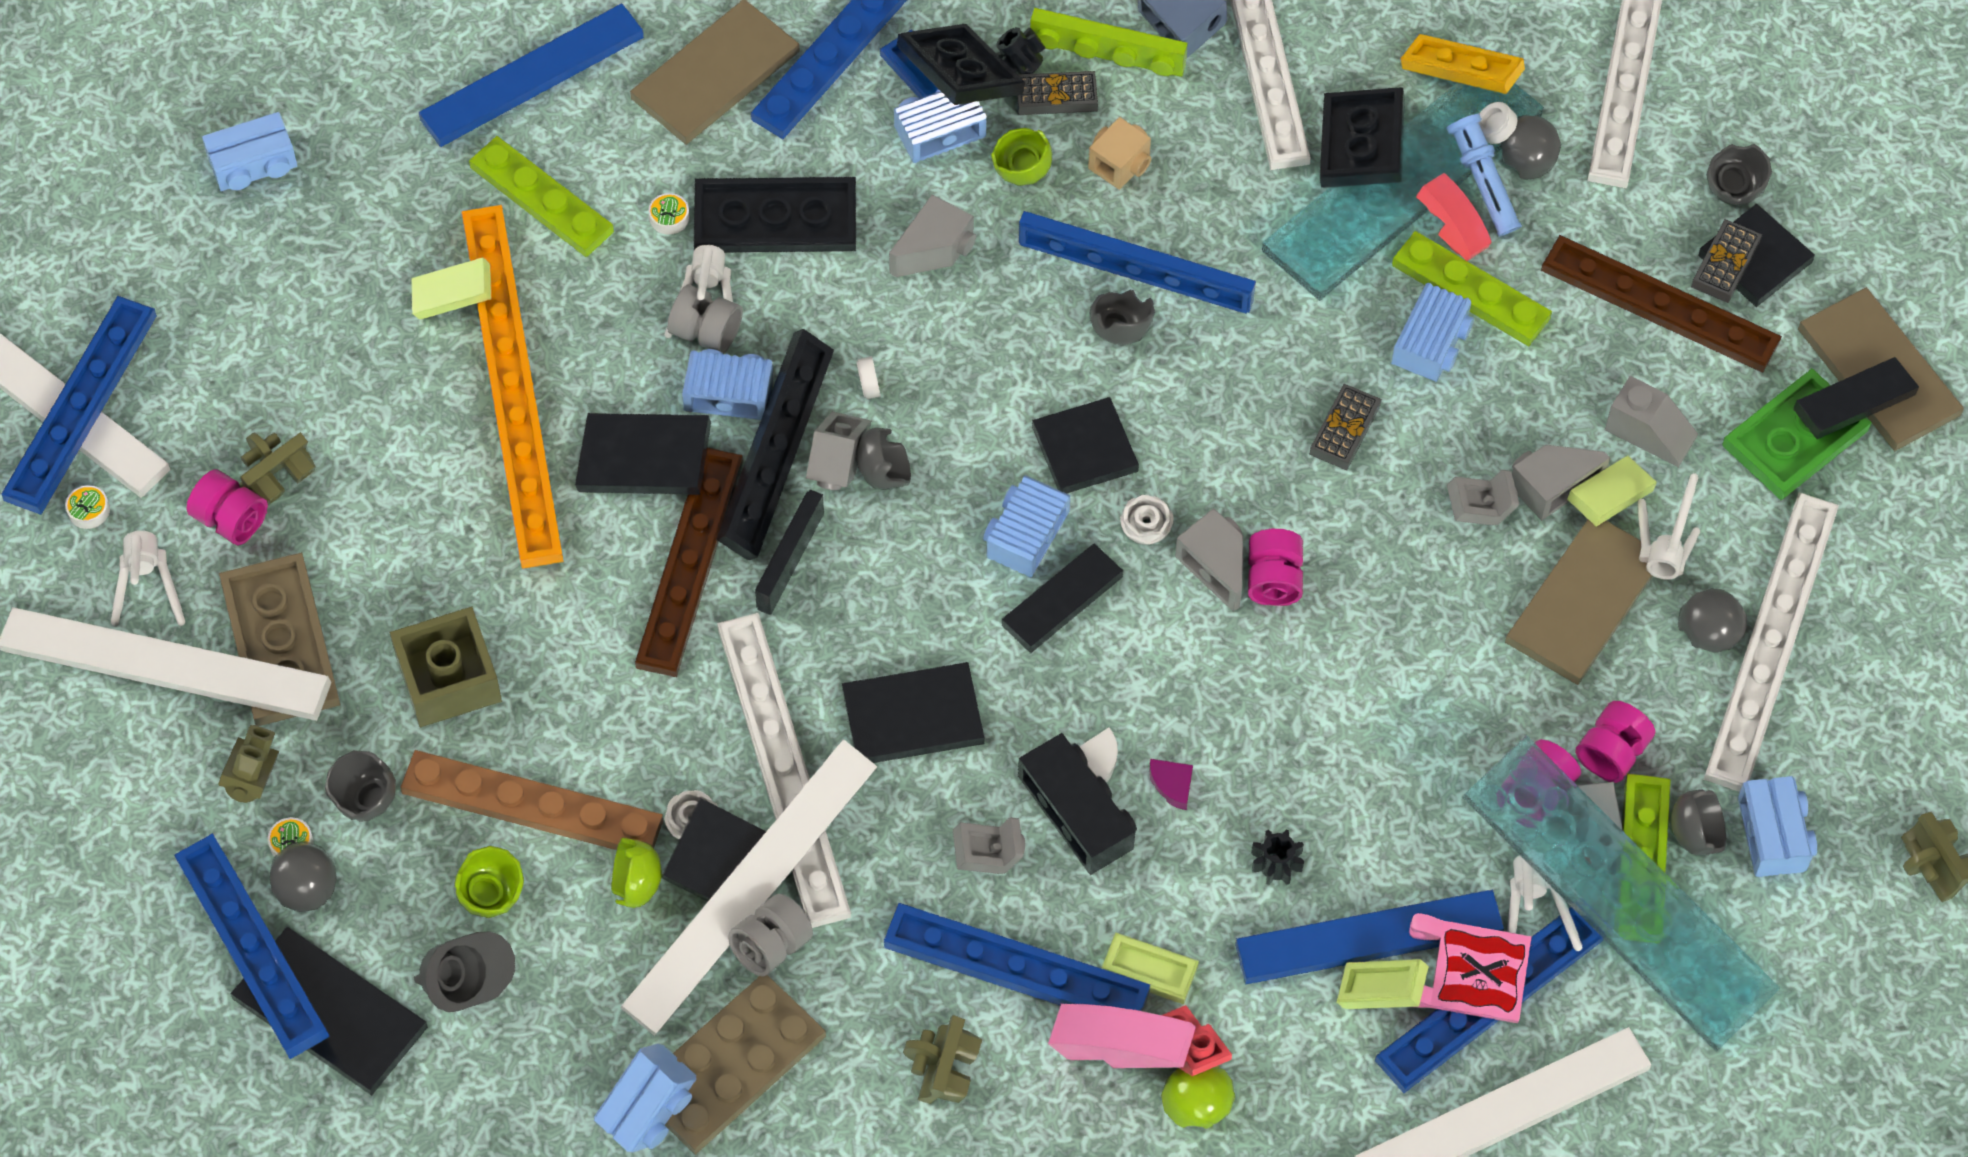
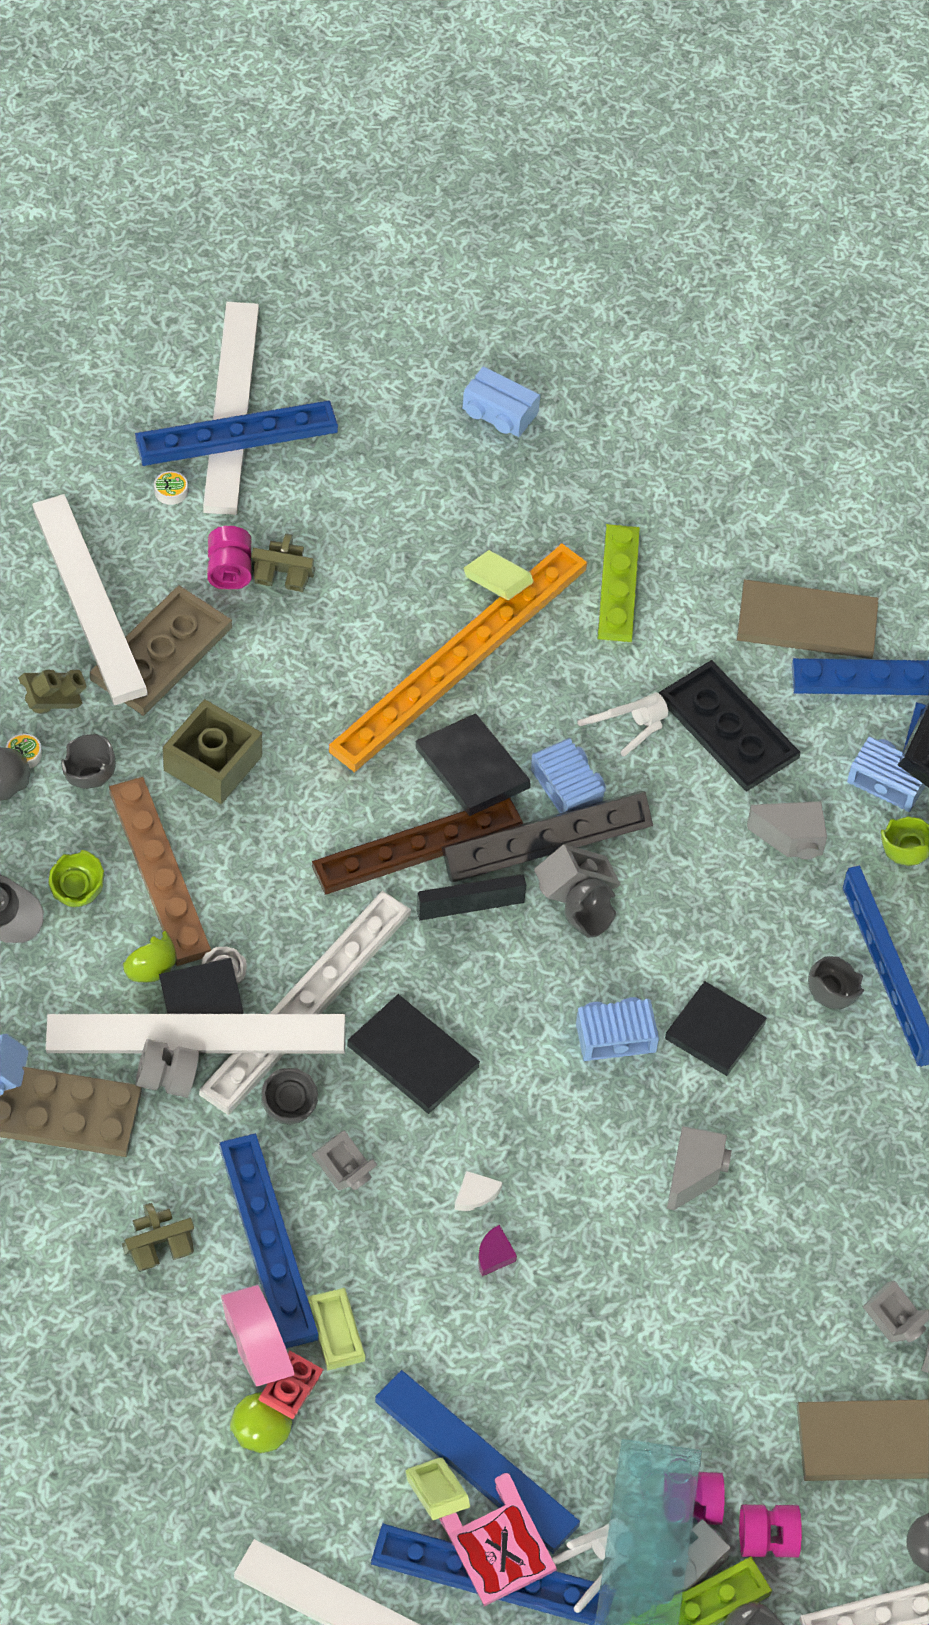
camera: 50 degrees right, 5 degrees down
(139, 558) = (155, 536): white plant -> none
(531, 75) = (706, 518): blue tile -> none
(669, 213) = (672, 663): tile -> none
(710, 321) = (604, 735): light grey wheel -> none
(868, 378) = (648, 859): white tile -> none
(882, 848) = (289, 1096): none -> dark grey hair
(1062, 598) = (582, 1089): black tile -> none
(1077, 803) = (424, 1198): black brick -> none
(1147, 508) = (692, 1093): white plate -> none
(1272, 866) = (493, 1363): black gear -> none
(1275, 567) = (722, 1206): dark pink wheel -> none
(1345, 427) = (880, 1187): dark grey tile -> none

